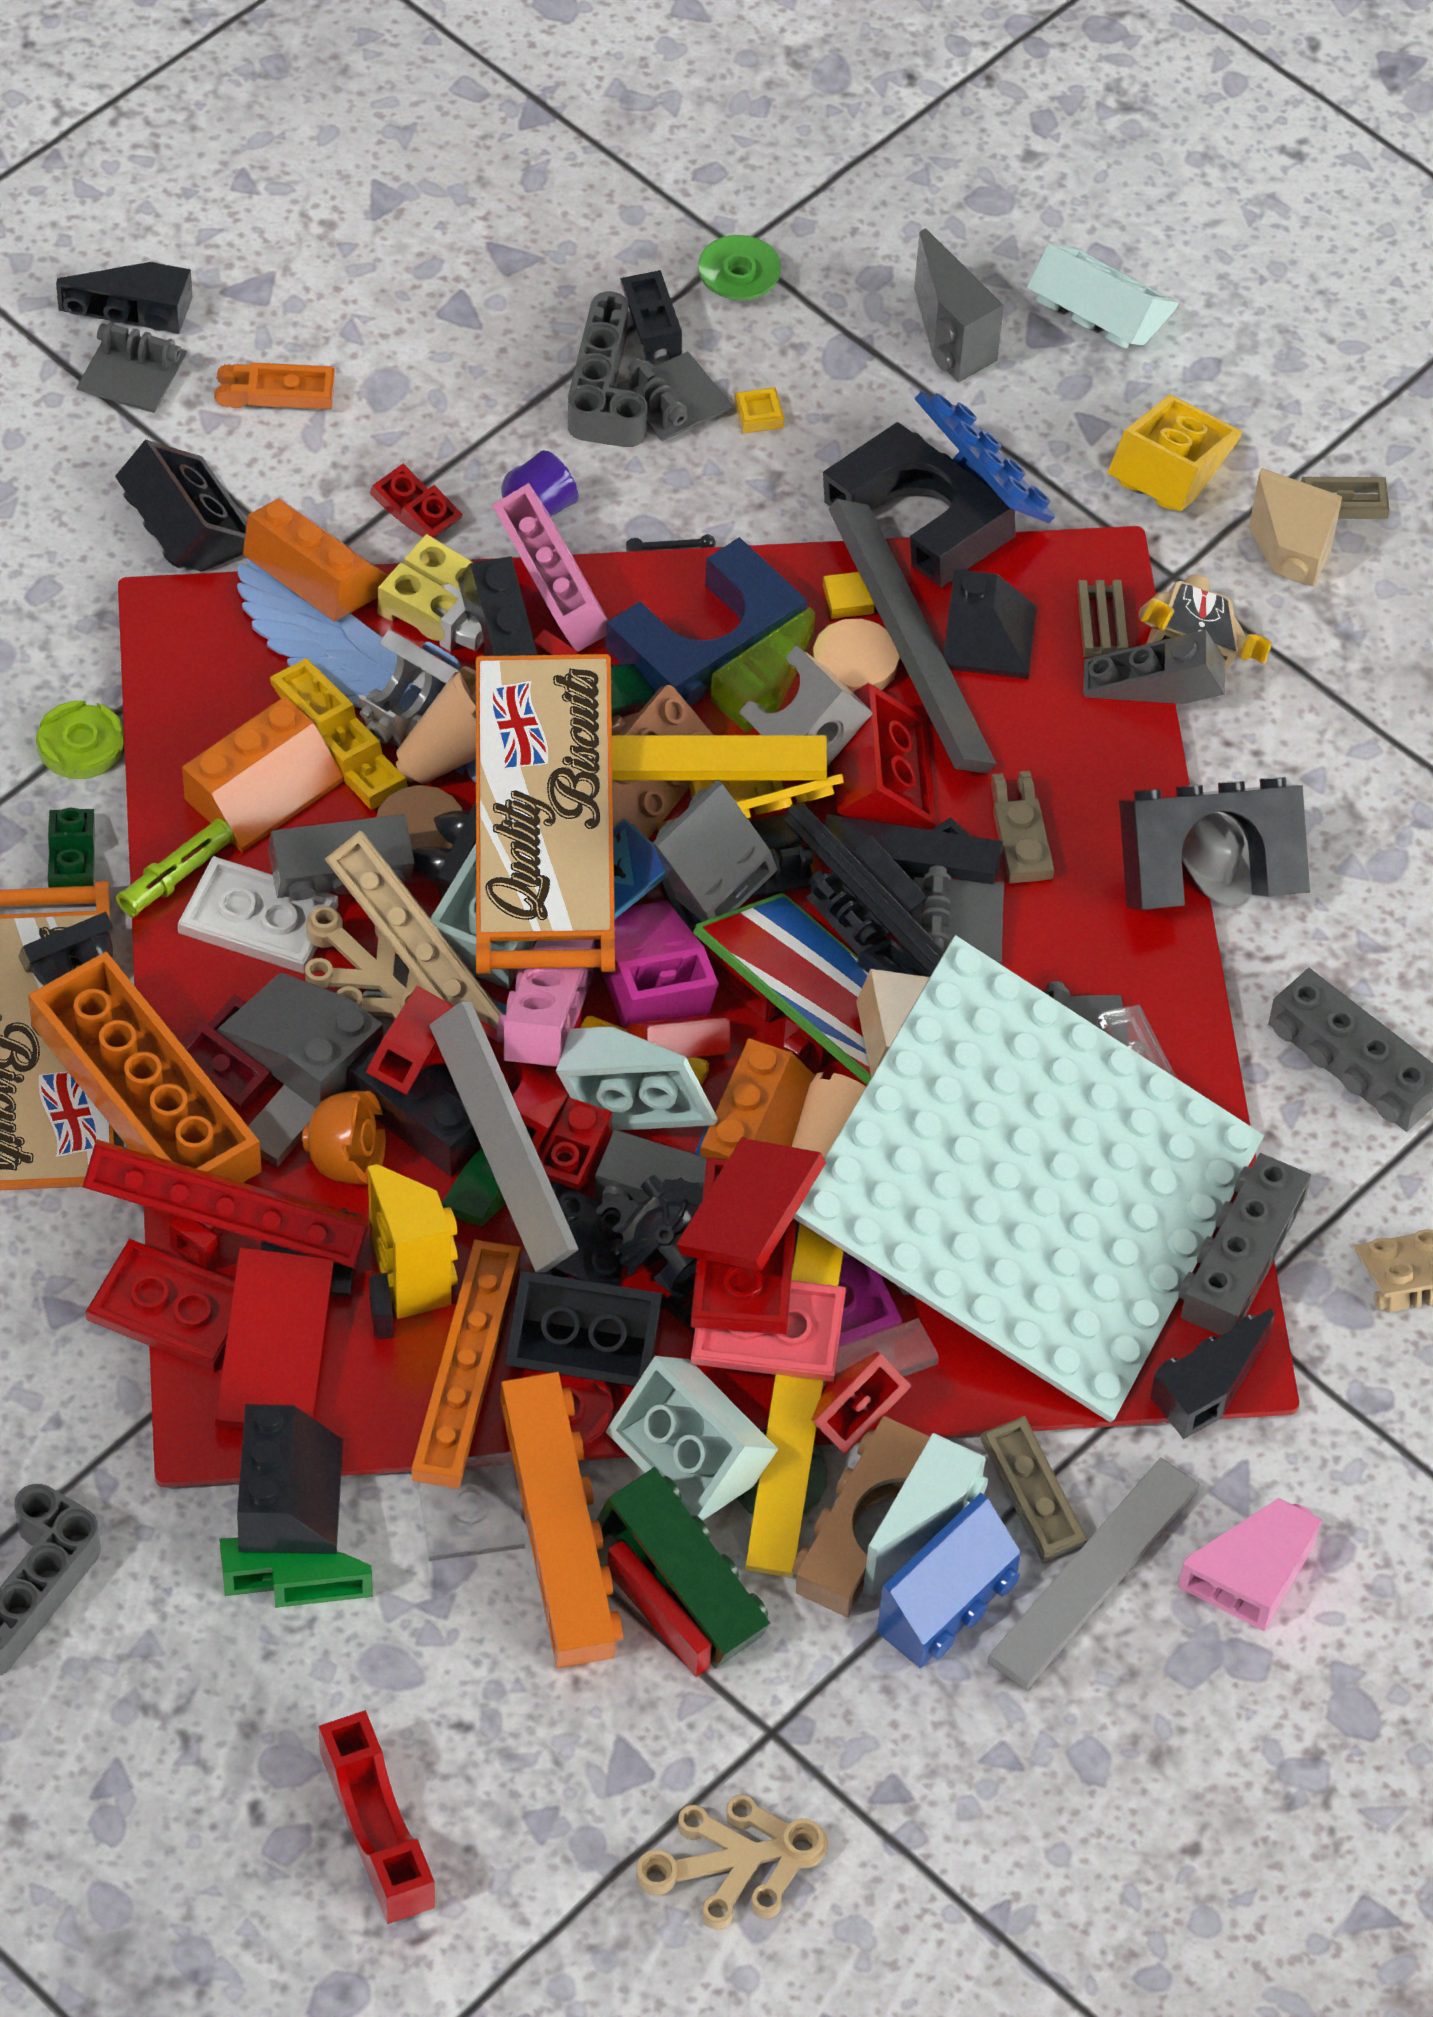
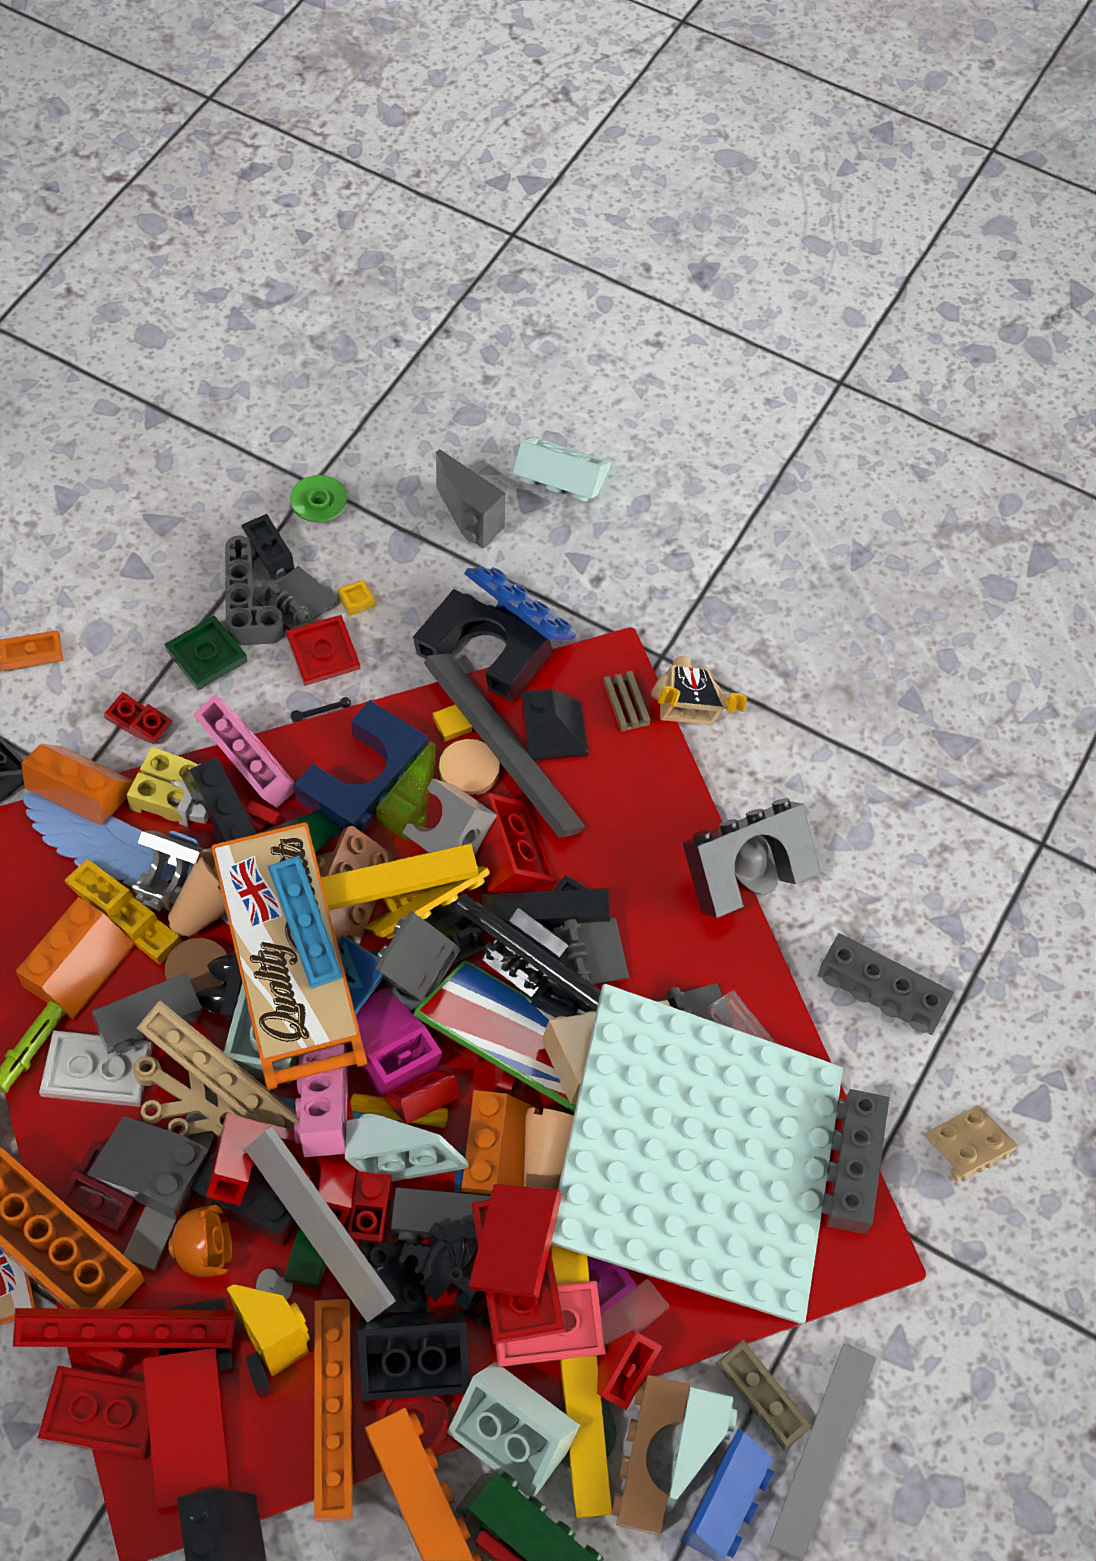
camera: 15 degrees left, 5 degrees up
(525, 428) = (206, 652): none -> dark green plate
(548, 479) = (225, 684): dark purple hair -> none
(576, 776) = (305, 922): none -> dark azure tile
(693, 467) = (322, 650): none -> red tile
(1022, 831) = (615, 873): dark tan hinge -> none
(1161, 671) = (674, 733): dark grey slope -> none
(1172, 452) = (638, 569): yellow slope -> none
(1203, 1383) = (863, 1278): black slope -> none
(1253, 1562) = (935, 1414): bright pink slope -> none
(1294, 525) = (733, 606): tan slope -> none
(1356, 505) = (758, 580): dark tan tile -> none

